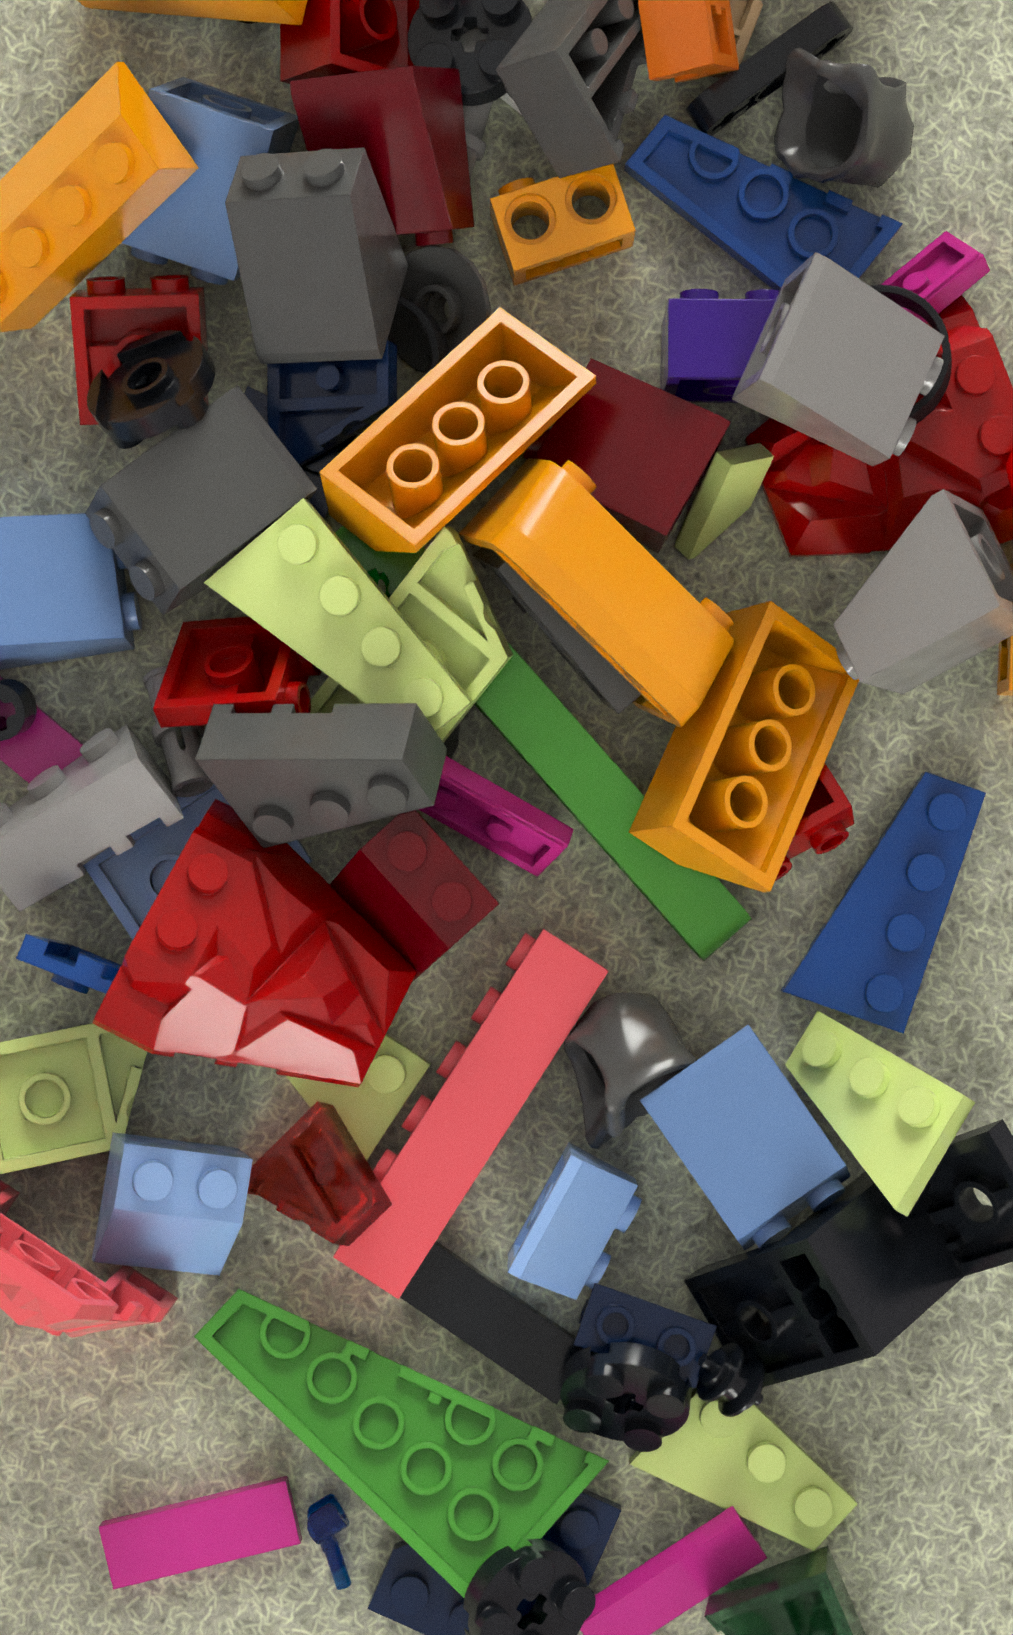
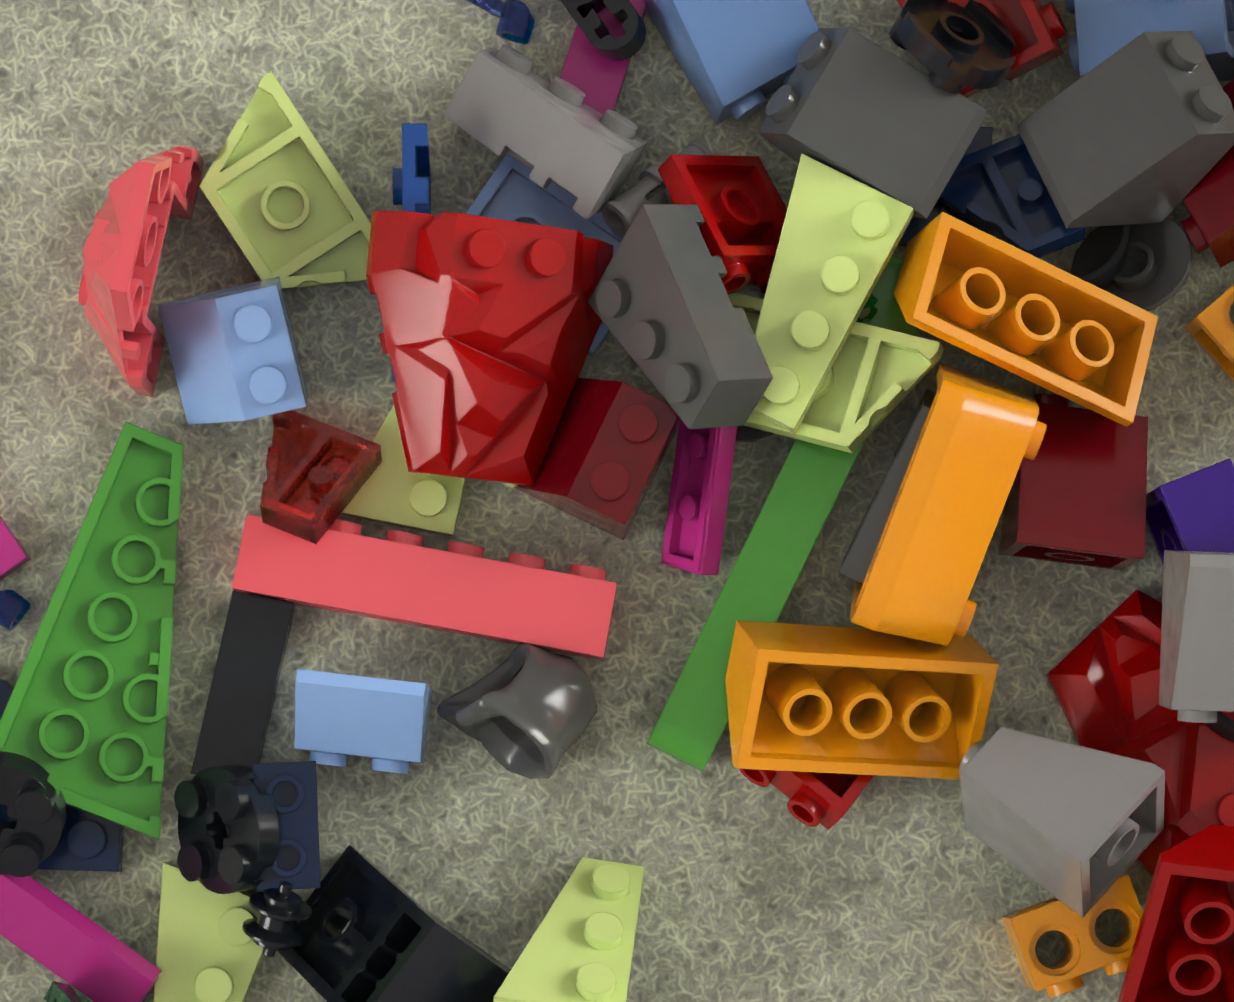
camera: 60 degrees right, 5 degrees down
(723, 496) = (1075, 589): yellowish green tile -> none
(748, 1139) = (501, 842): medium blue slope -> none
(887, 922) = (754, 898): blue wing -> none

